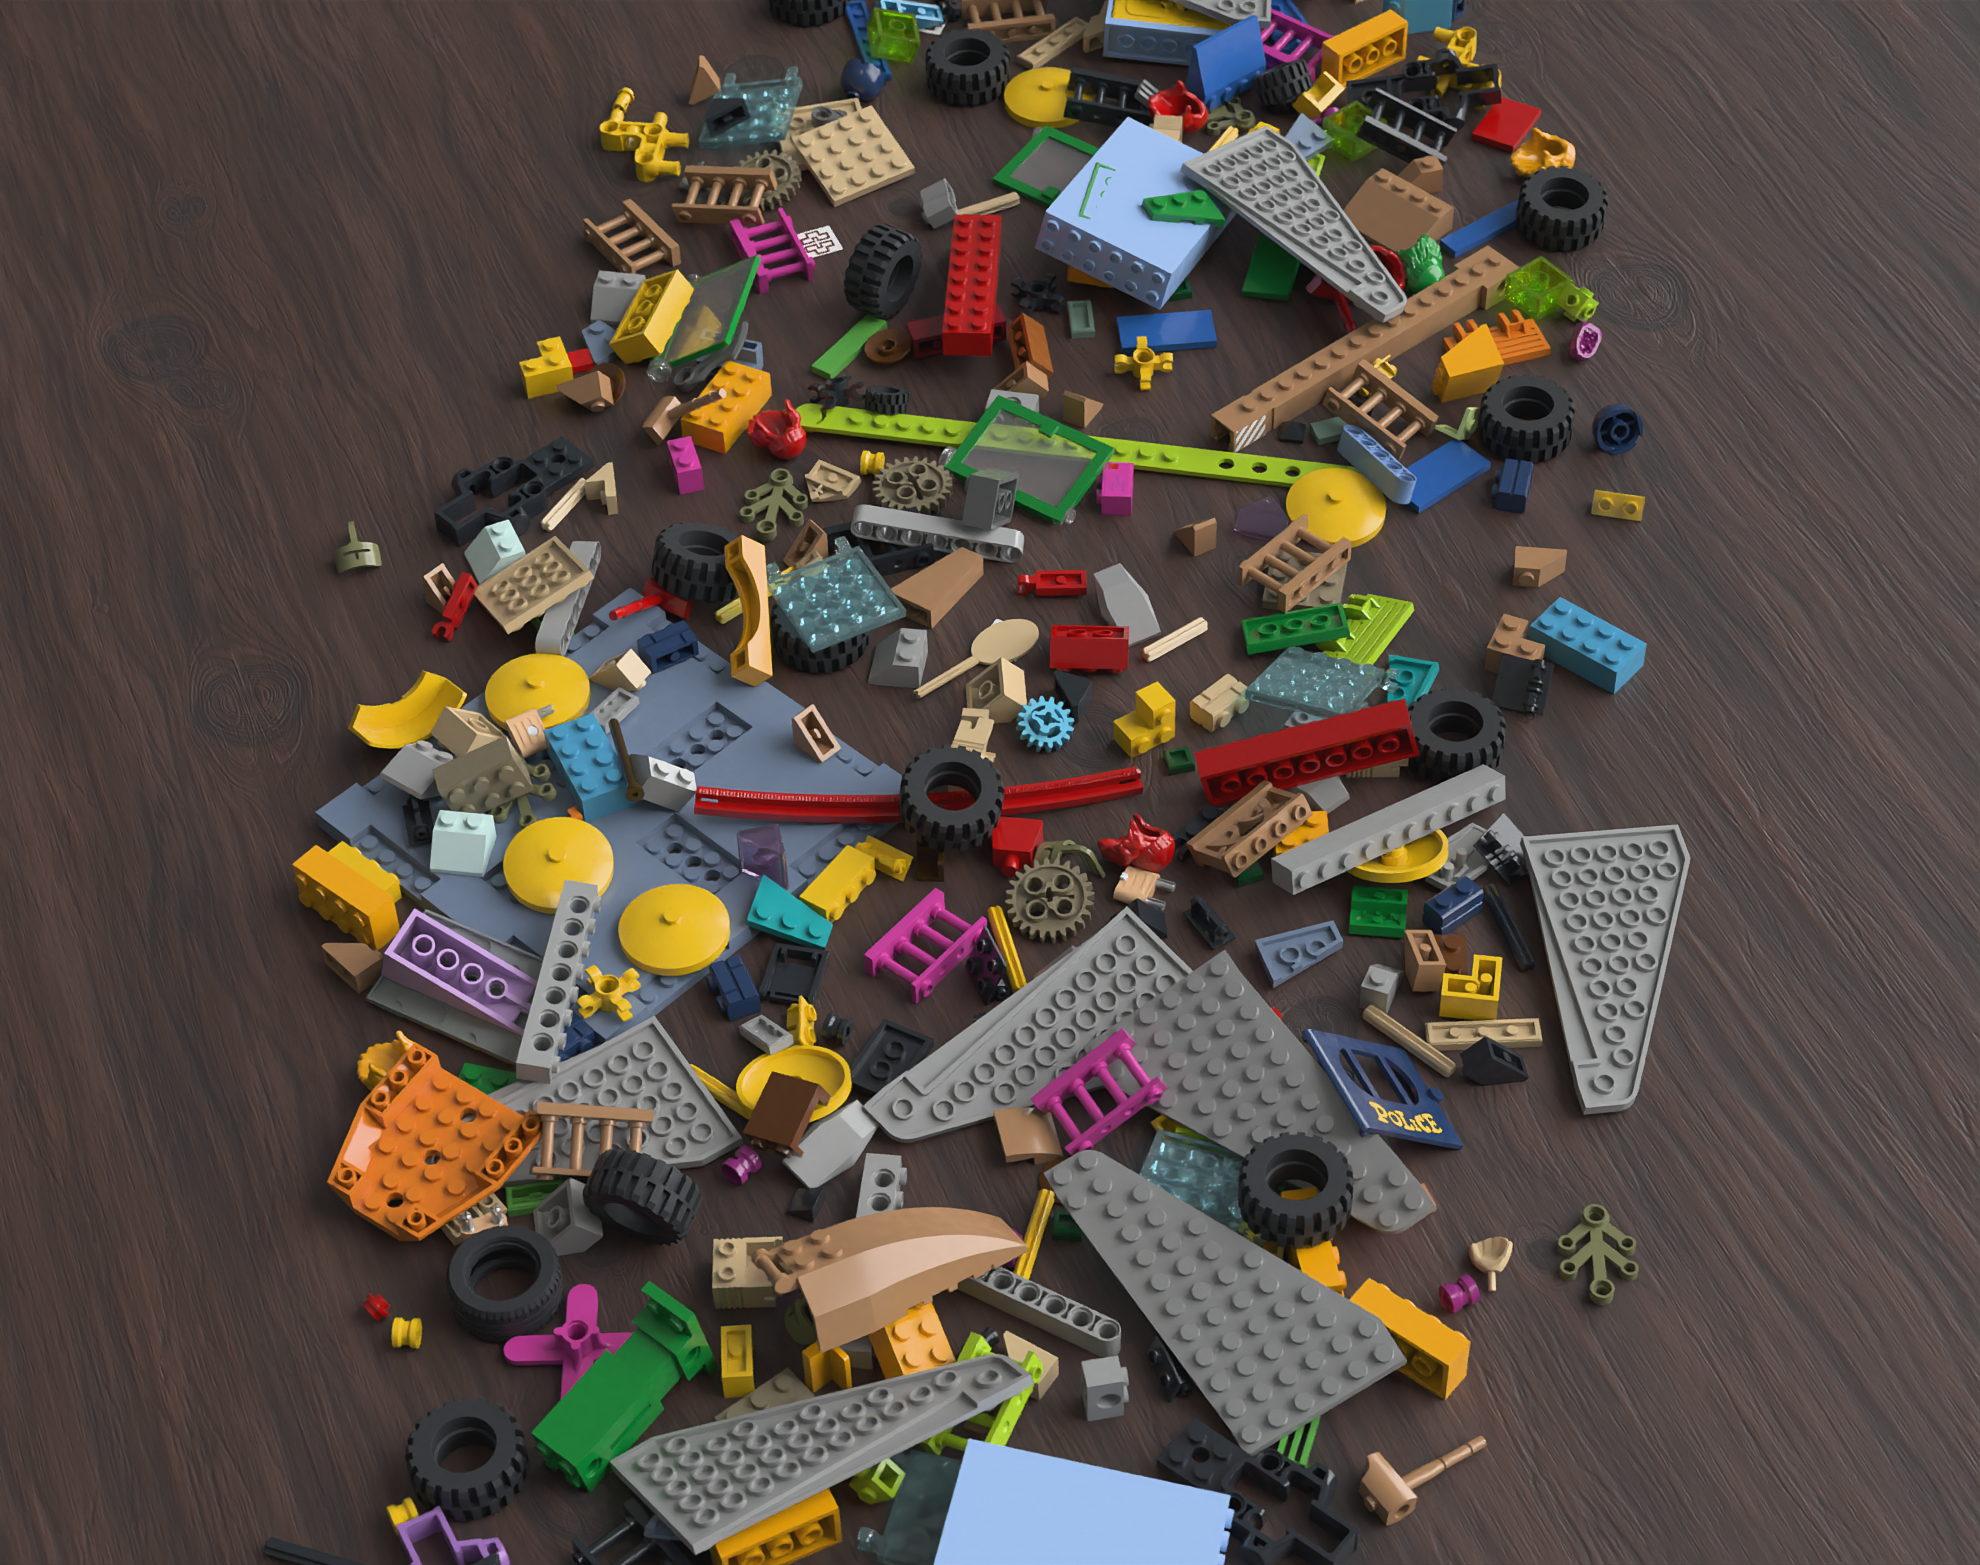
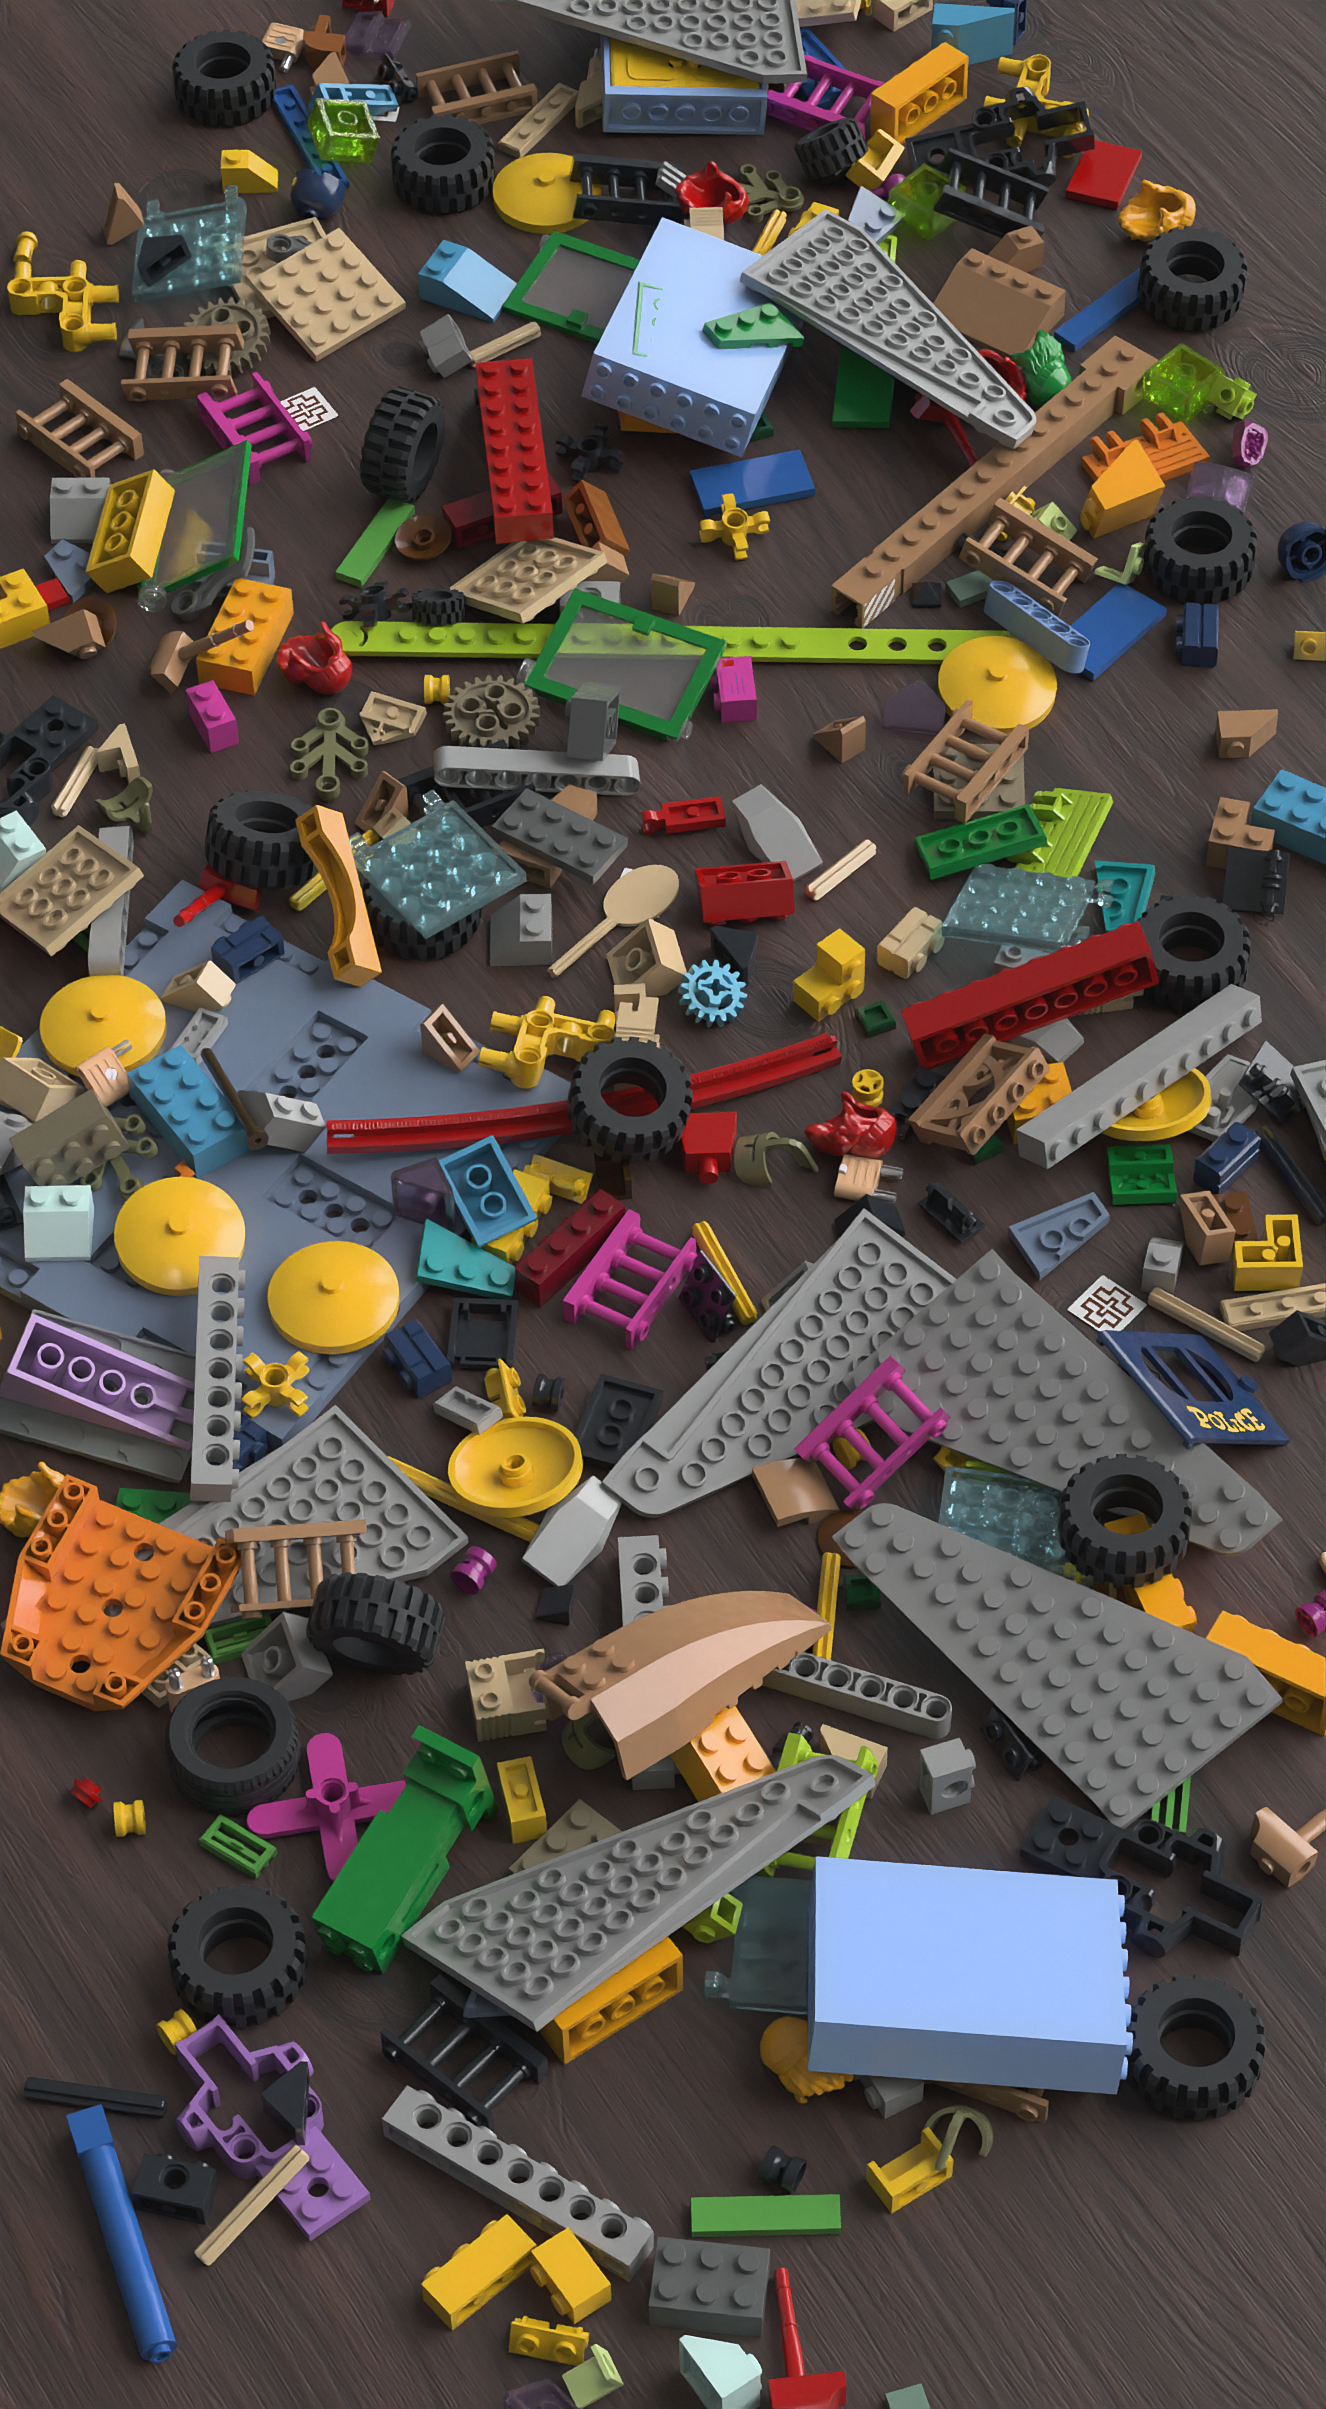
camera: 10 degrees left, 5 degrees up
(507, 1383) = (229, 1856): none -> bright green tile
(608, 522) = (138, 789): none -> olive helmet
(784, 1114) = (516, 1504): reddish brown panel -> none
(811, 60) = (247, 172): none -> yellow slope
(816, 858) = (486, 1192): none -> dark azure slope
(826, 1366) = (620, 1794): light orange panel -> none
(877, 914) = (568, 1248): none -> dark red brick
(889, 742) = (541, 1035): none -> yellow pin
(944, 586) = (559, 836): none -> dark grey plate
(965, 157) = (464, 282): none -> slope
(965, 383) = (528, 577): none -> tan plate
(1051, 922) = (770, 1233): dark tan gear -> none
(1077, 1109) = (846, 1452): none -> yellow wheel
(1081, 319) = (646, 477): sand green tile -> none
(1159, 814) = (871, 1082): none -> yellow wheel
(1226, 63) = (761, 132): blue slope -> none
(1327, 1015) = (1107, 1306): none -> white sticker
(1411, 384) = (1054, 519): none -> yellowish green bracket
(1557, 368) = (1220, 483): none -> clear purple slope

